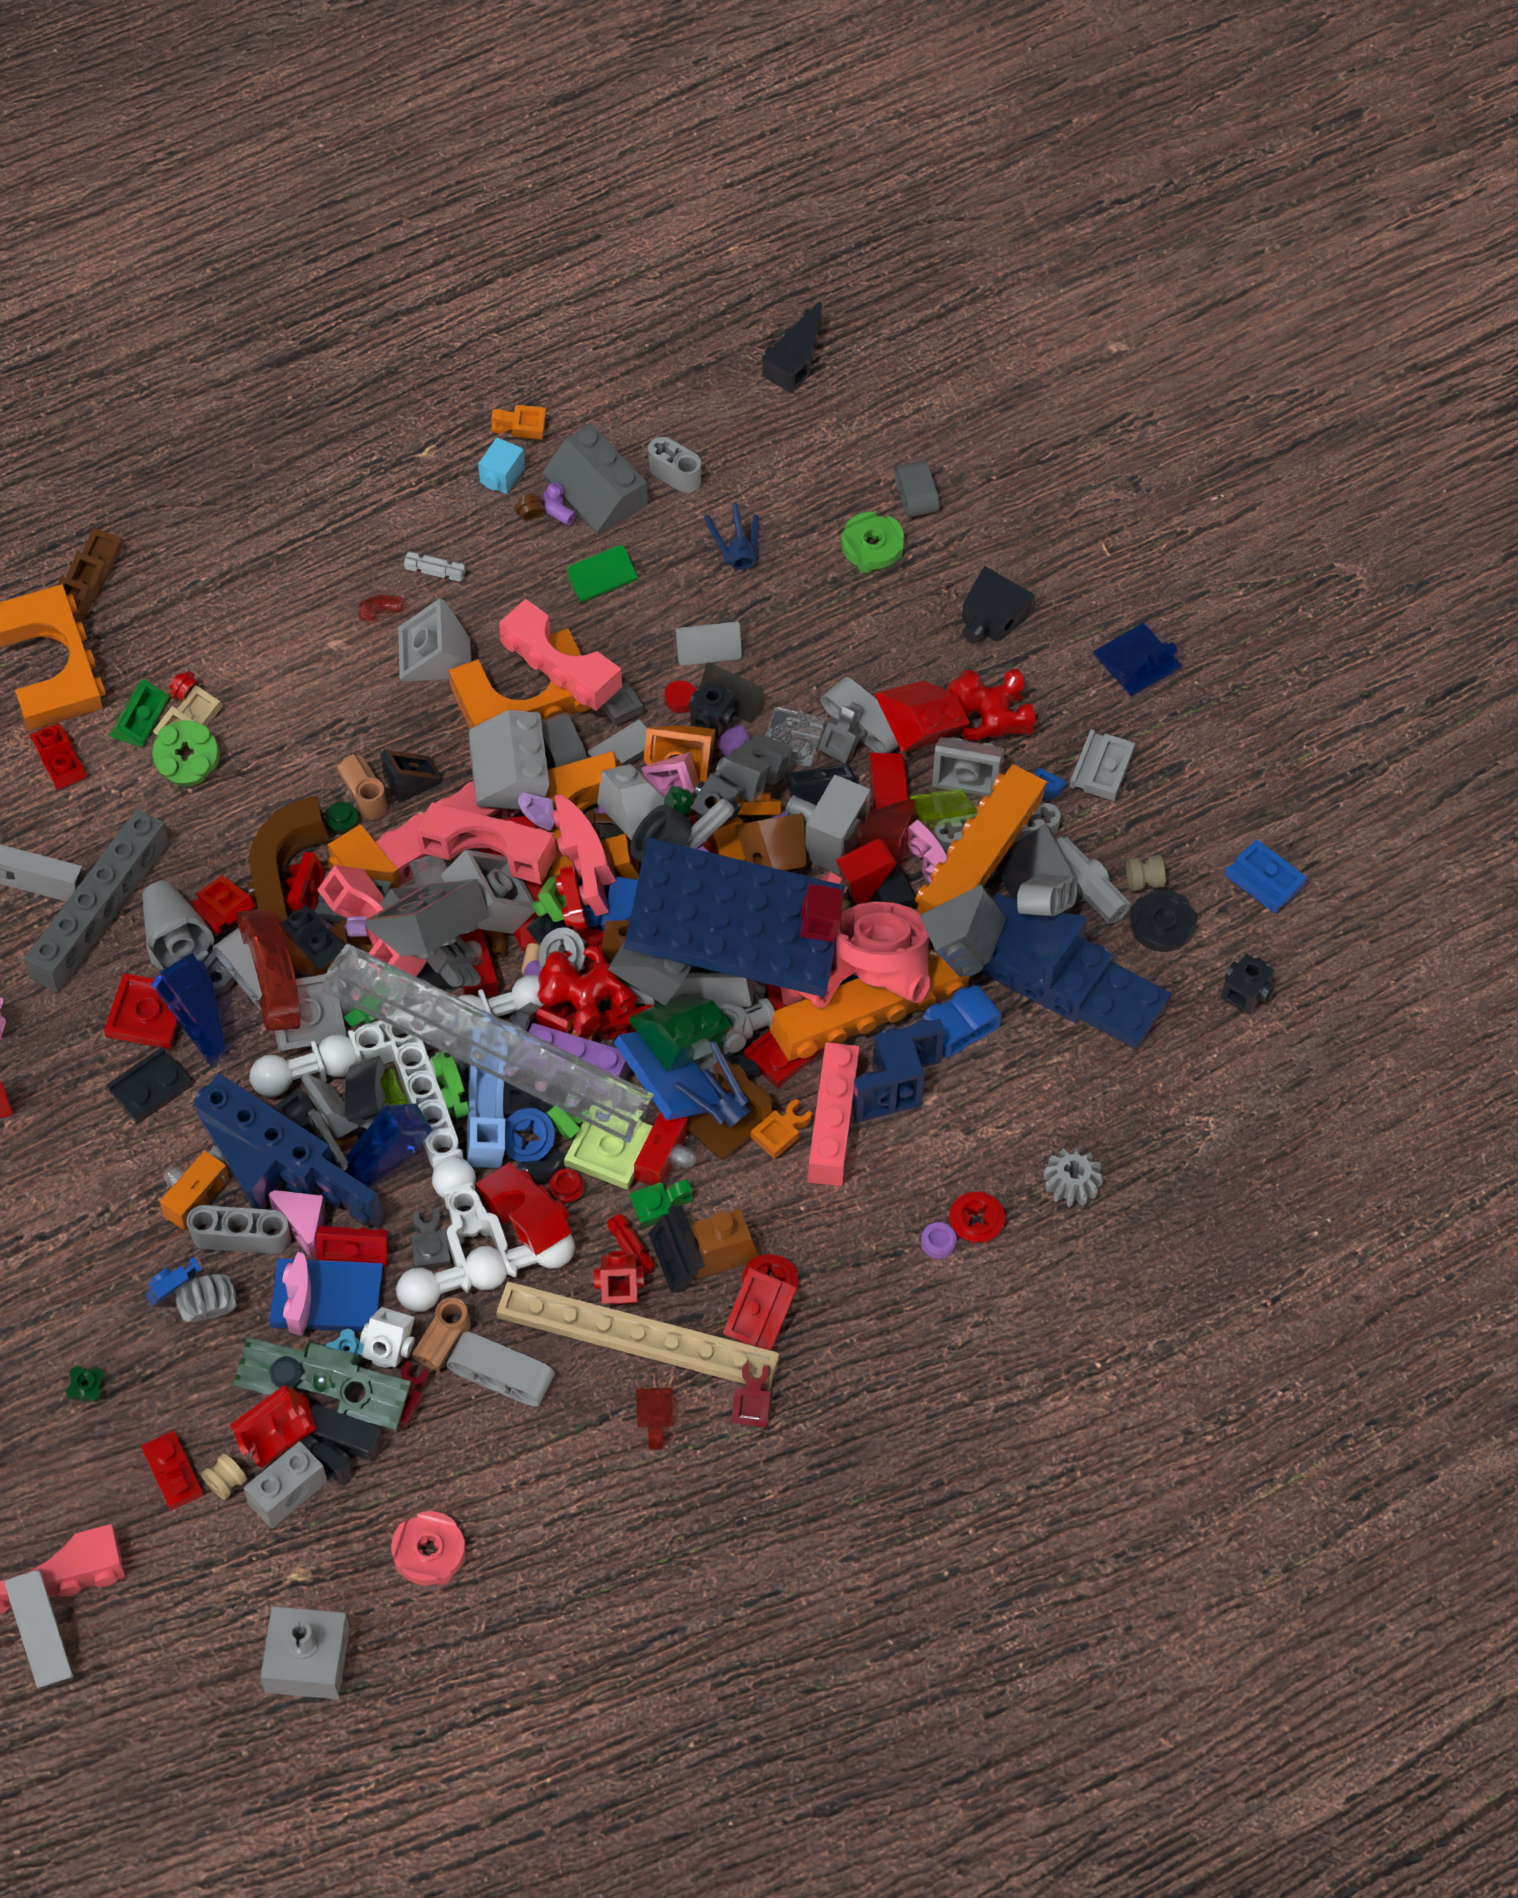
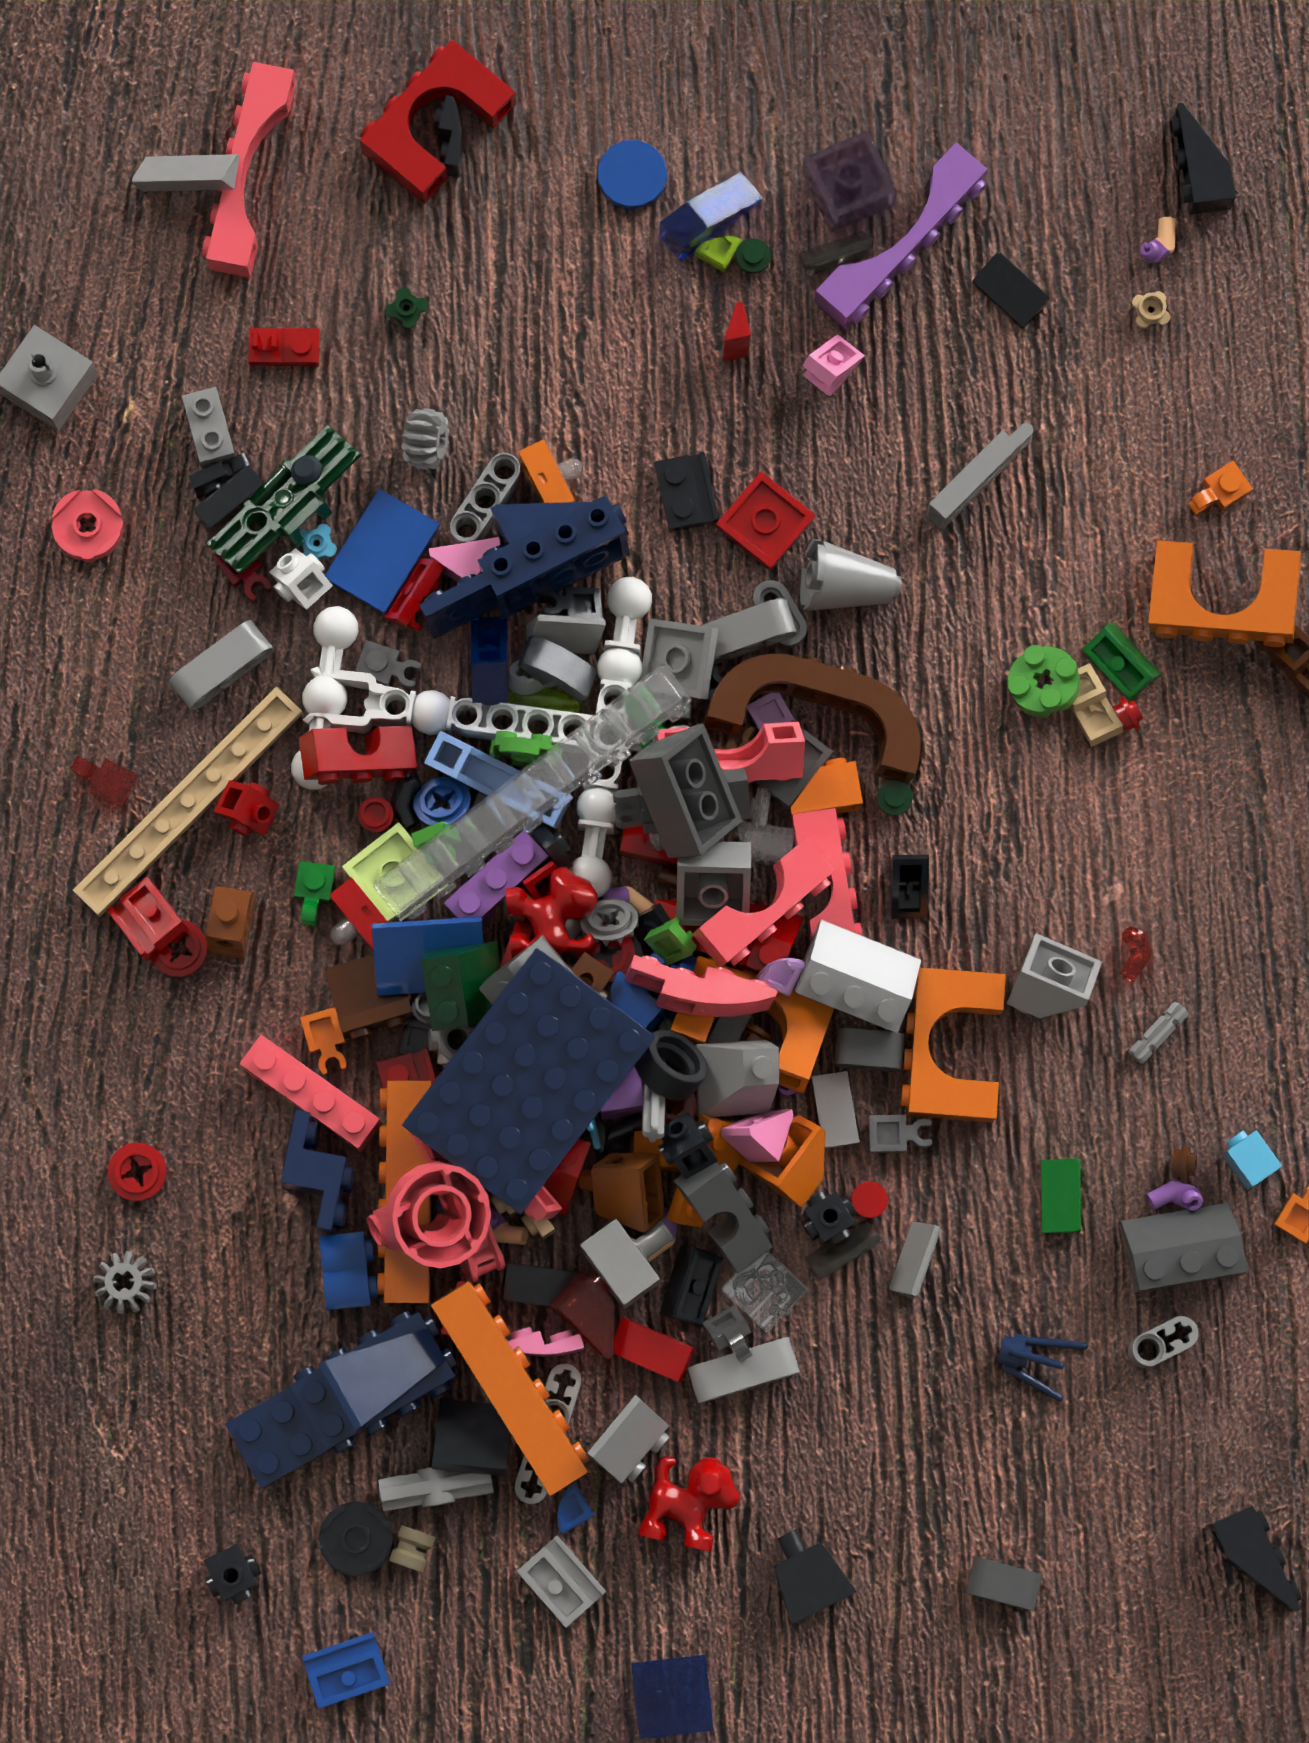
camera: 115 degrees right, 20 degrees up
(57, 756) = (1108, 563): red slope -> none
(97, 901) = (911, 525): dark grey brick -> none
(167, 1281) = (455, 413): blue plate -> none
(192, 1000) = (746, 560): clear blue slope -> none
(221, 902) = (844, 634): red plate -> none
(223, 1476) = (248, 383): tan wheel -> none
(273, 968) = (728, 635): clear red slope -> none
(273, 1425) = (264, 441): red hinge -> none
(299, 1293) = (392, 524): bright pink slope -> none
(305, 884) = (821, 723): red plate -> none
(312, 936) = (739, 689): black slope -> none
(325, 1135) = (514, 606): clear piece -> none
(355, 926) = (736, 738): lavender hand -> none
(363, 787) = (921, 833): nougat piece -> none
(442, 1336) = (281, 629): nougat piece -> none
(575, 911) = (668, 952): red plate -> none
(588, 677) = (999, 1069): coral arch -> none
(630, 1242) = (284, 842): red axle -> none
(676, 1249) = (248, 875): black plate -> none
(679, 799) = (707, 1107): dark green plate -> none
(731, 1106) = (365, 996): dark blue plant -> none
(732, 739) = (783, 1221): medium lavender tile -> none
(751, 1402) = (66, 868): dark red plate -> none
(821, 912) = (481, 1159): dark red brick -> none
(865, 870) = (549, 1260): red slope -> none
(872, 556) = (975, 1485): bright green plate -> none
(921, 714) = (705, 1420): red slope -> none
(938, 1240) = (136, 1125): medium lavender tile -> none
(943, 805) = (594, 1386): clear neon green piece -> none
(965, 930) = (395, 1290): dark grey slope -> none
(1047, 895) = (408, 1410): light grey beam -> none

